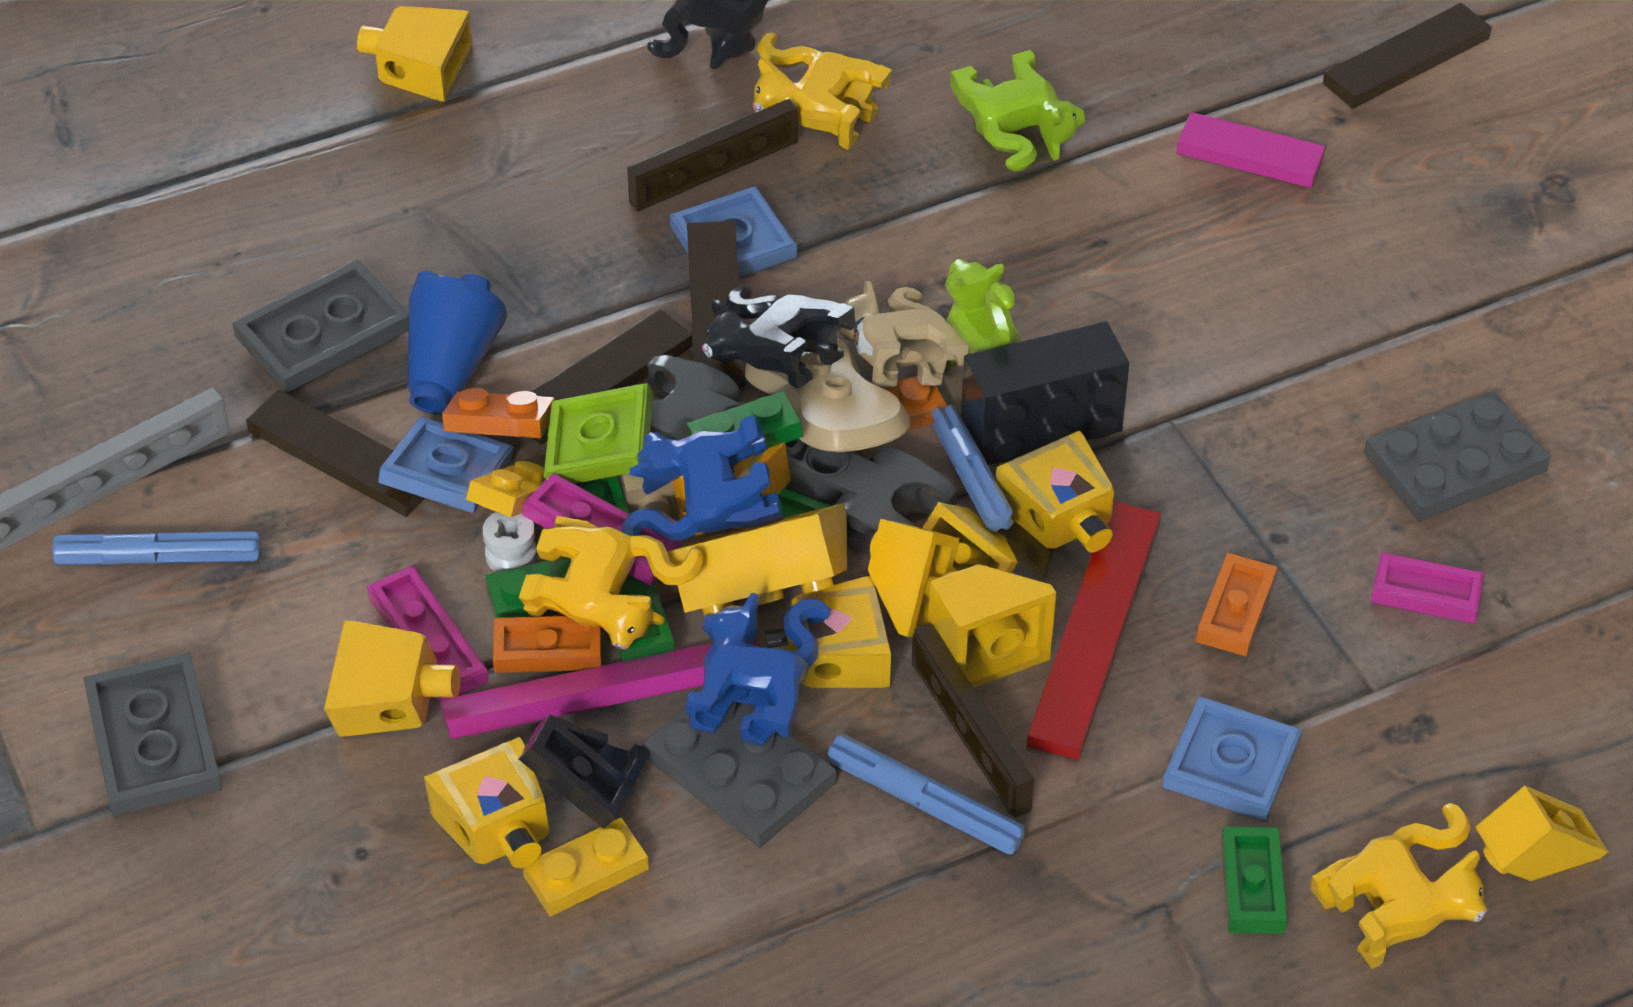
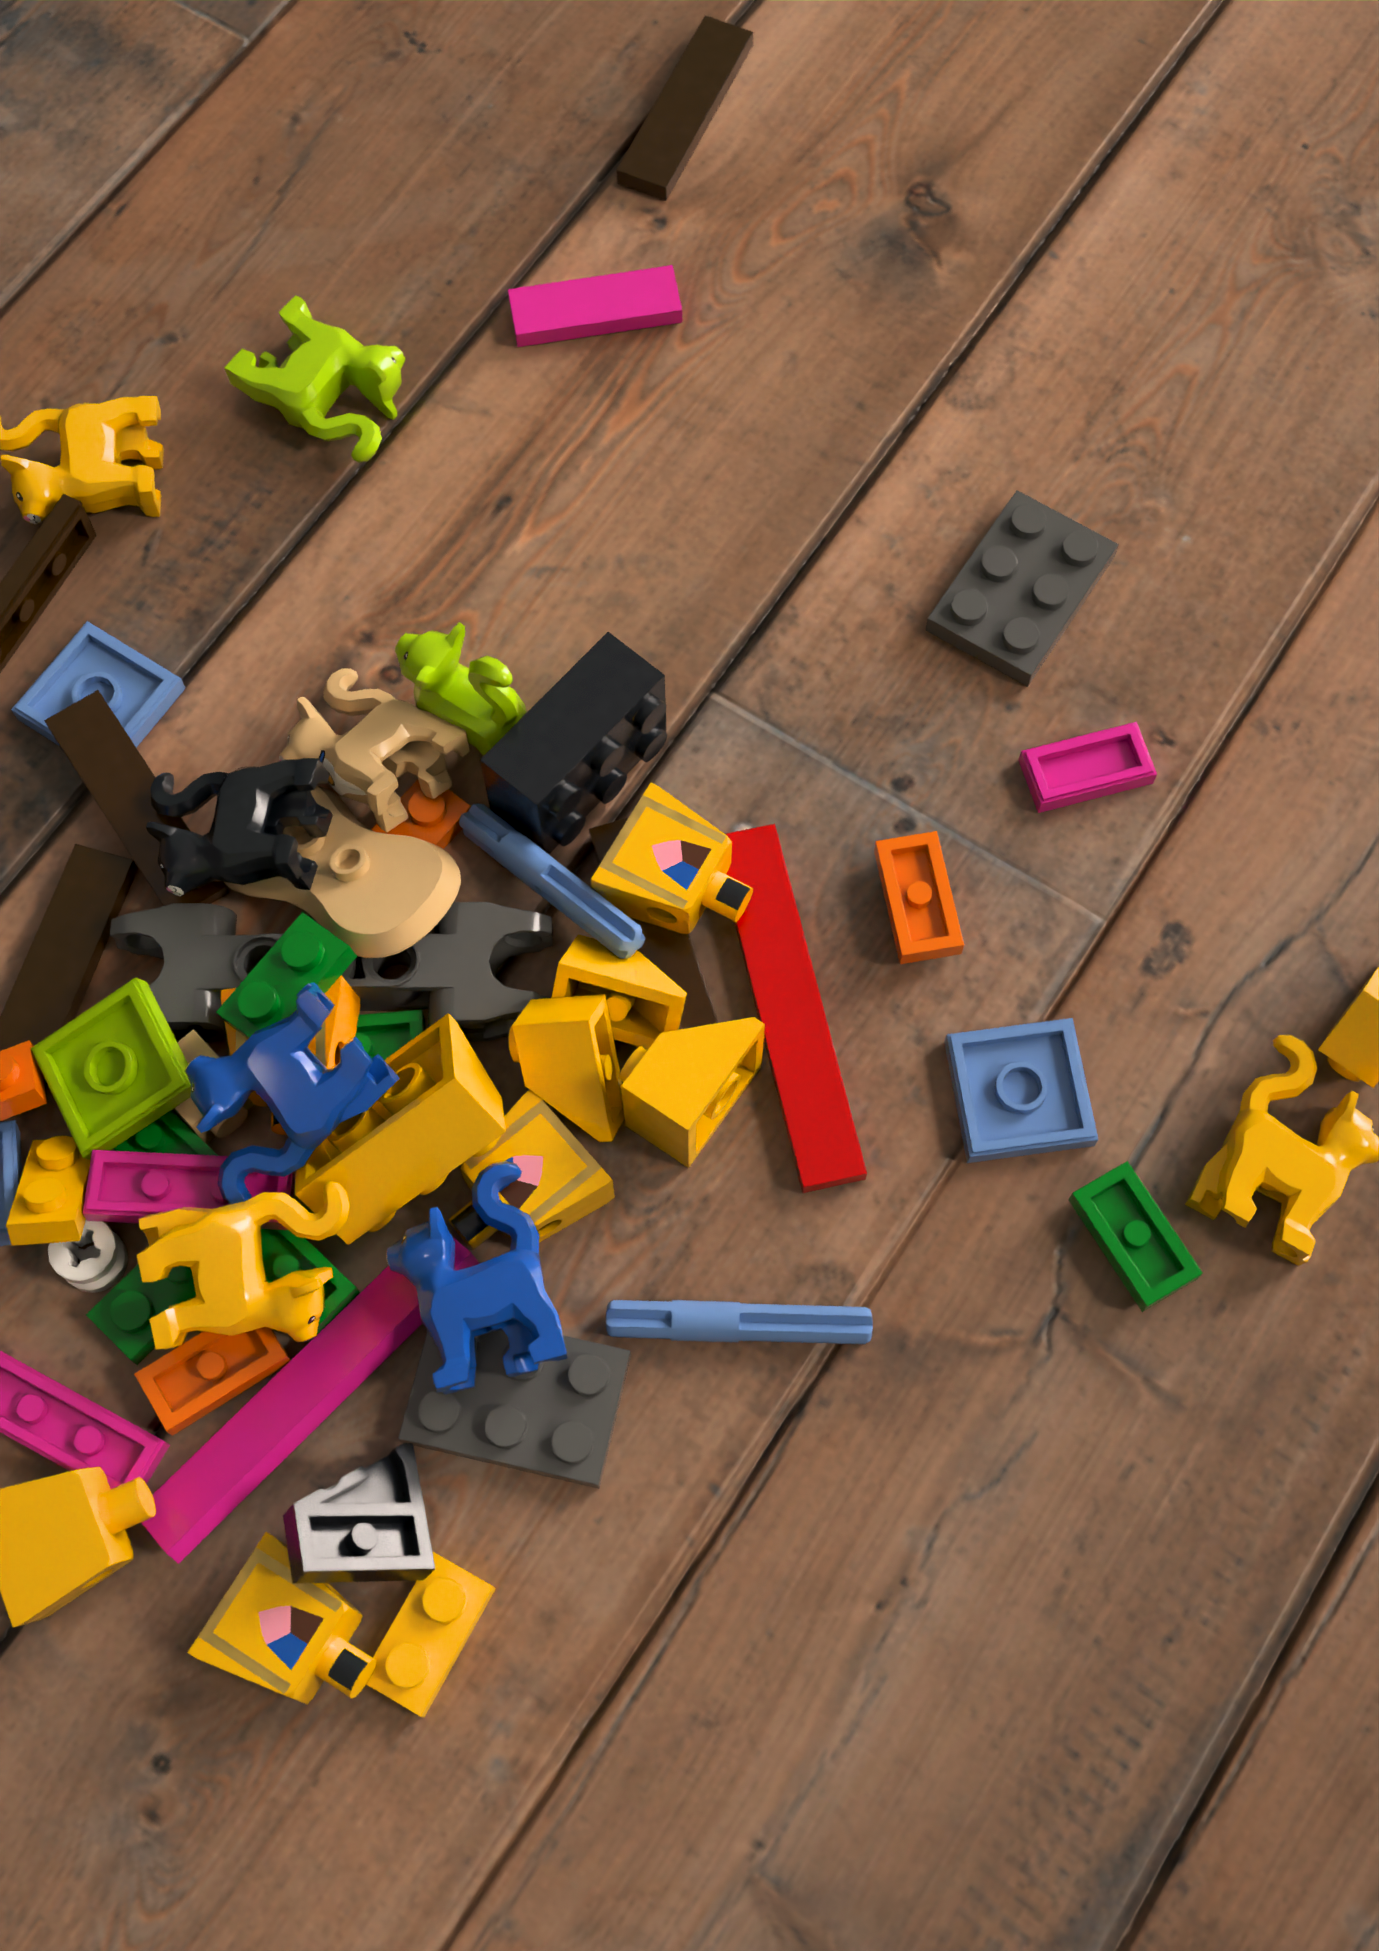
camera: 30 degrees left, 20 degrees up
(972, 721) = (736, 1204): dark brown tile -> none

